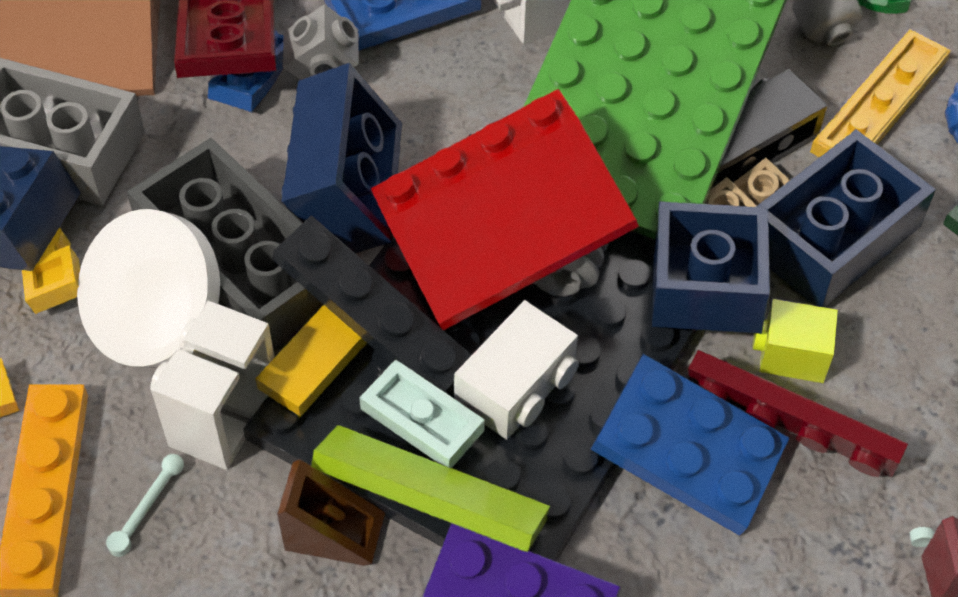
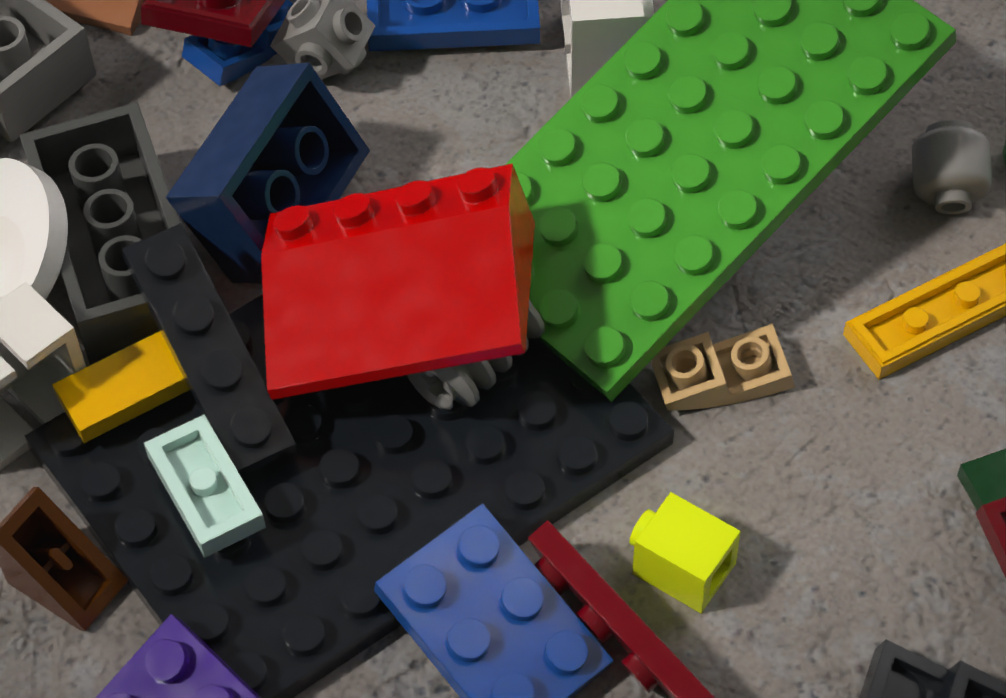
camera: 25 degrees right, 0 degrees up
(431, 487) = (171, 569): lime tile -> none
(517, 369) = (330, 471): white brick -> none
(711, 267) = (605, 429): dark blue brick -> none
(774, 122) = (791, 283): black brick -> none
(842, 217) = (811, 424): dark blue brick -> none

